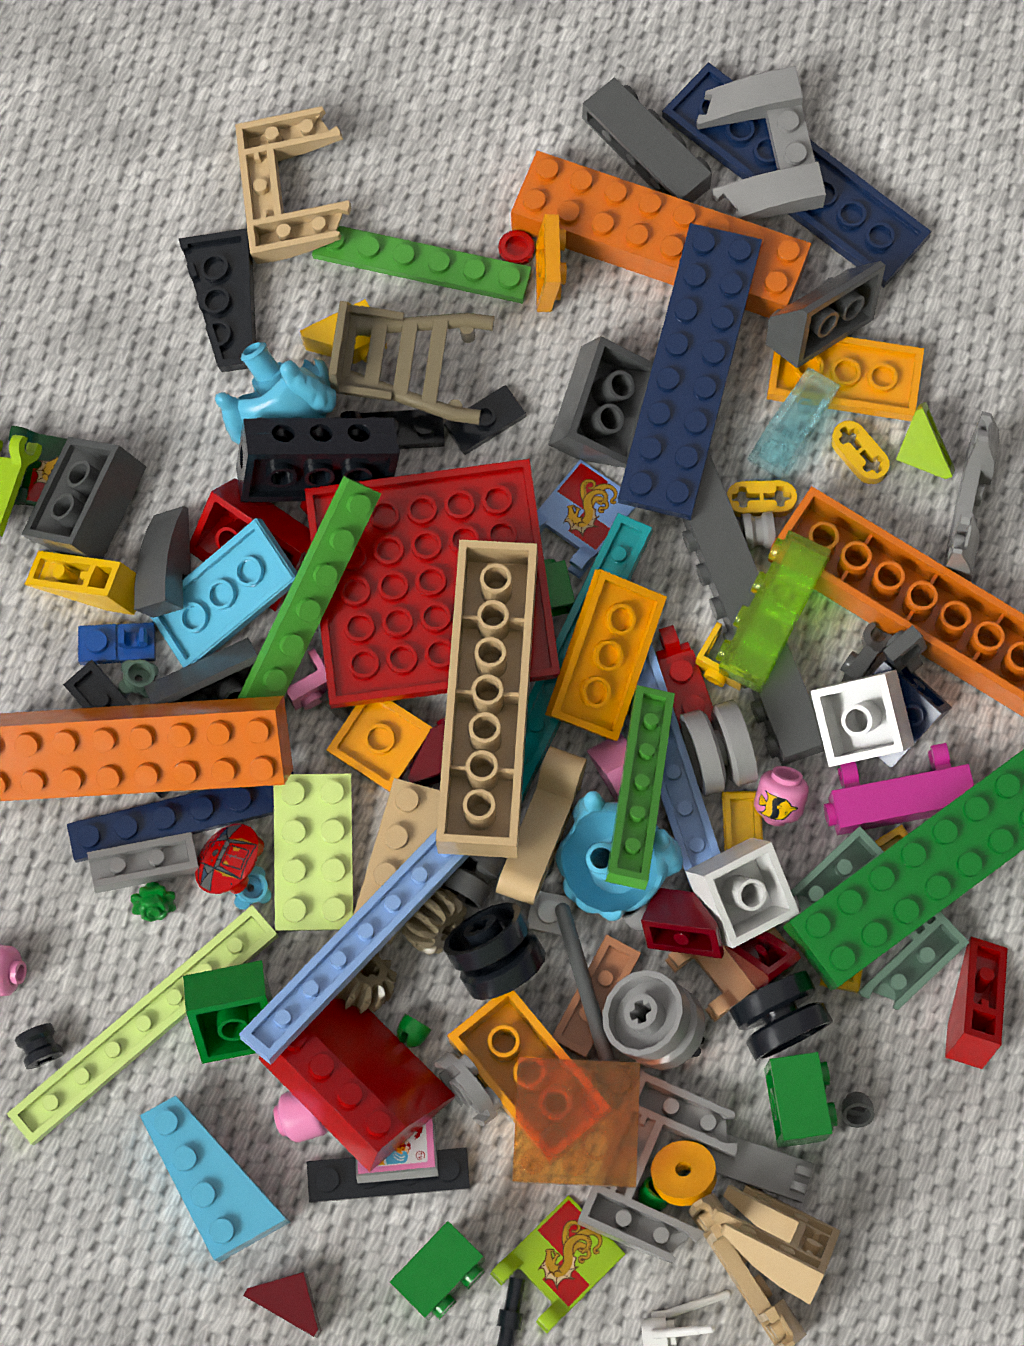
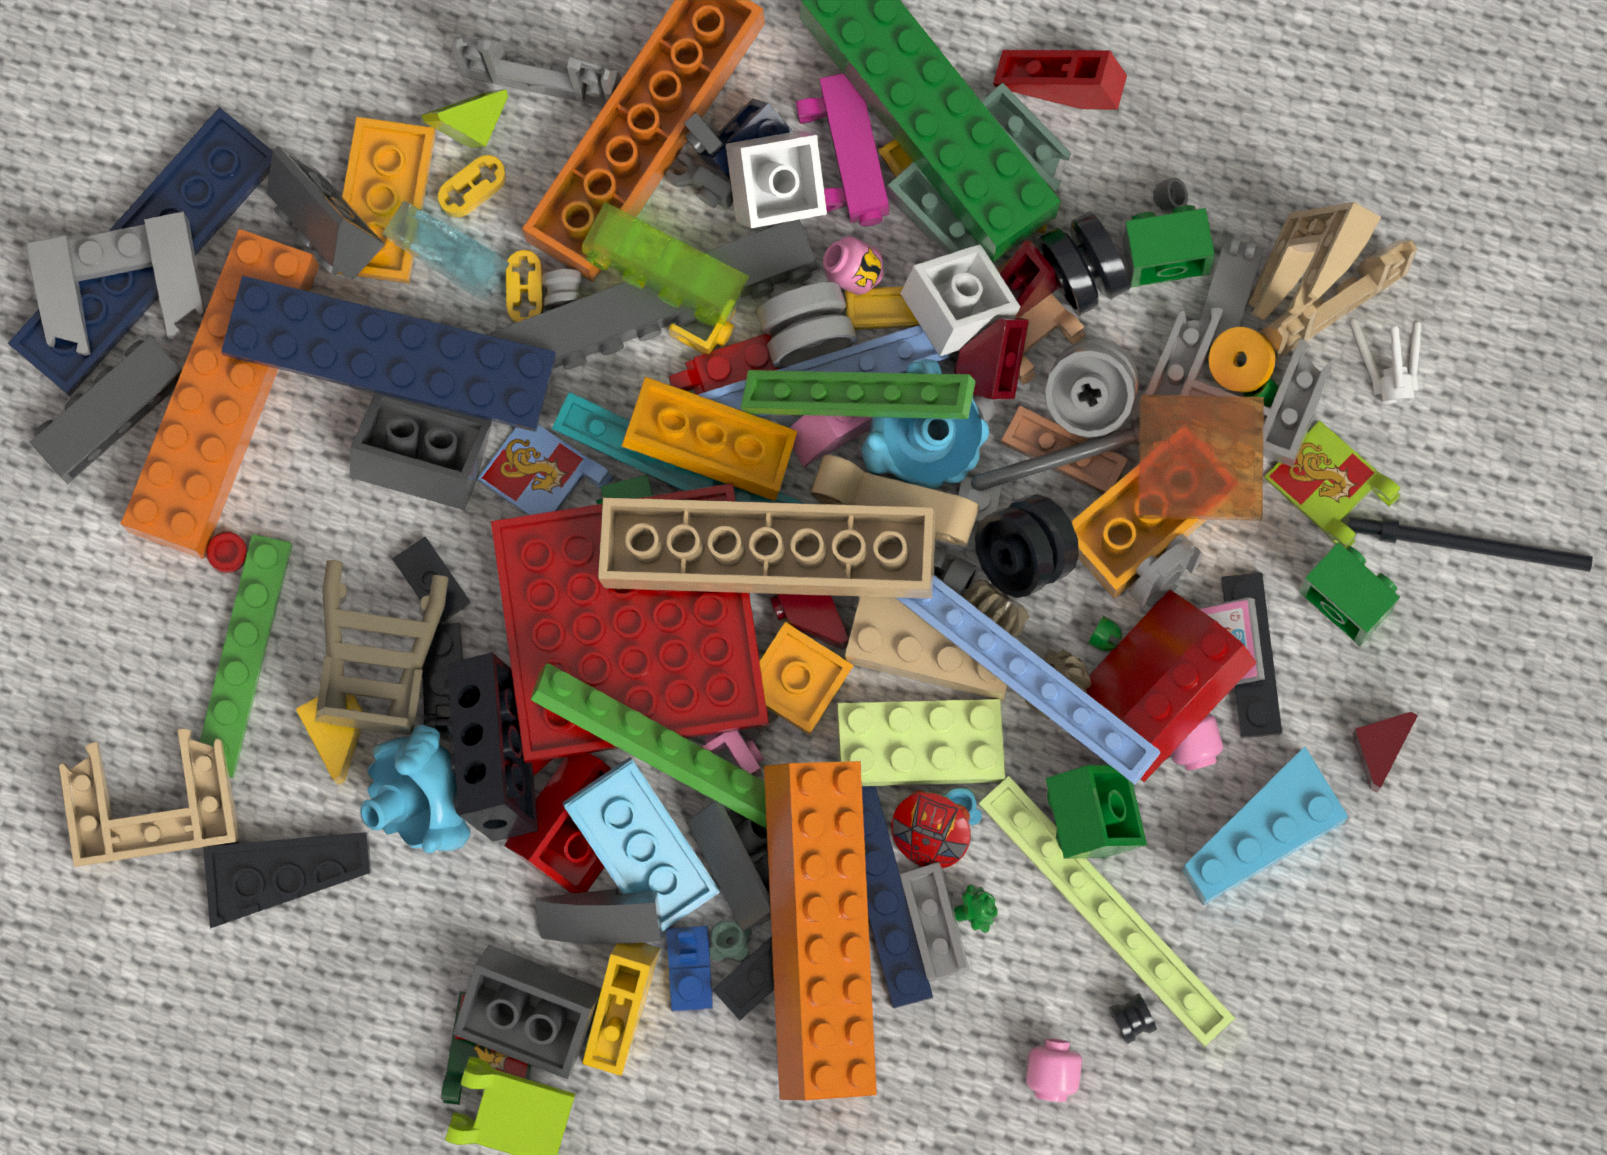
camera: 85 degrees left, 5 degrees up
(549, 270) = (256, 509): light orange plate -> none

